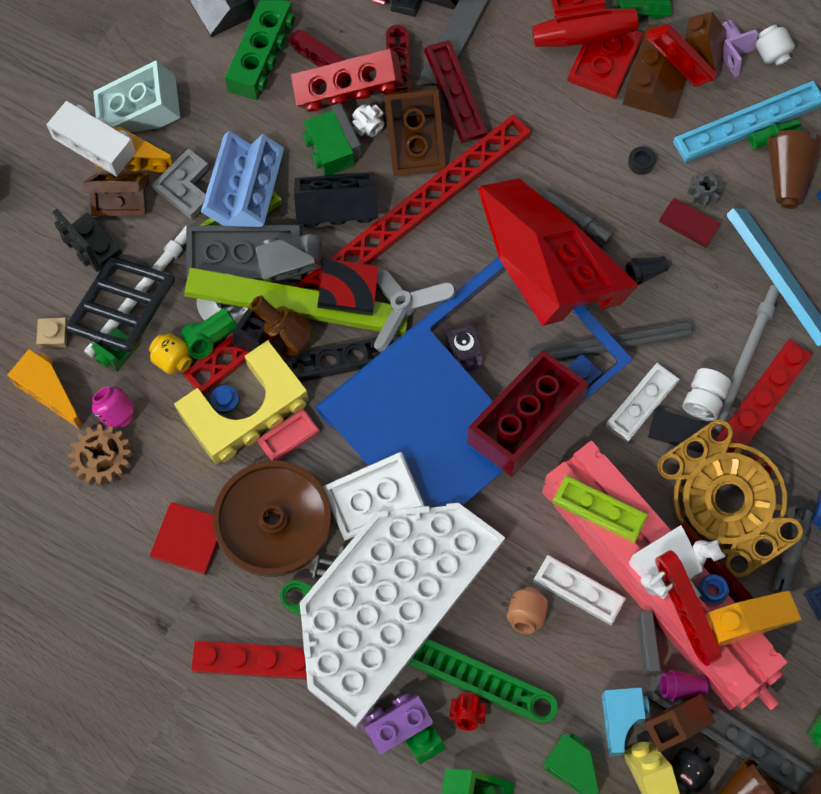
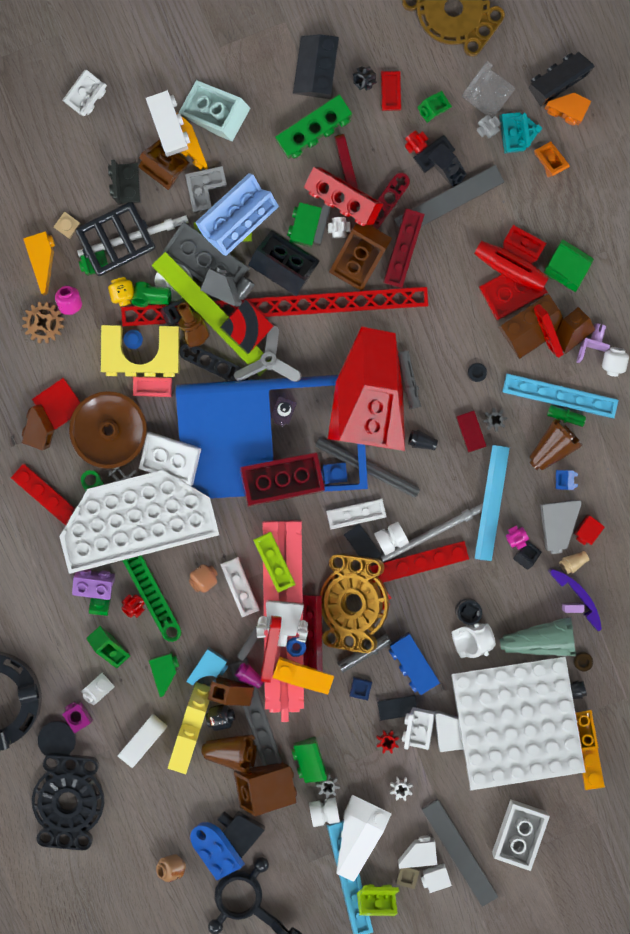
camera: 35 degrees right, 20 degrees up
(184, 581) = (38, 430): none -> reddish brown slope

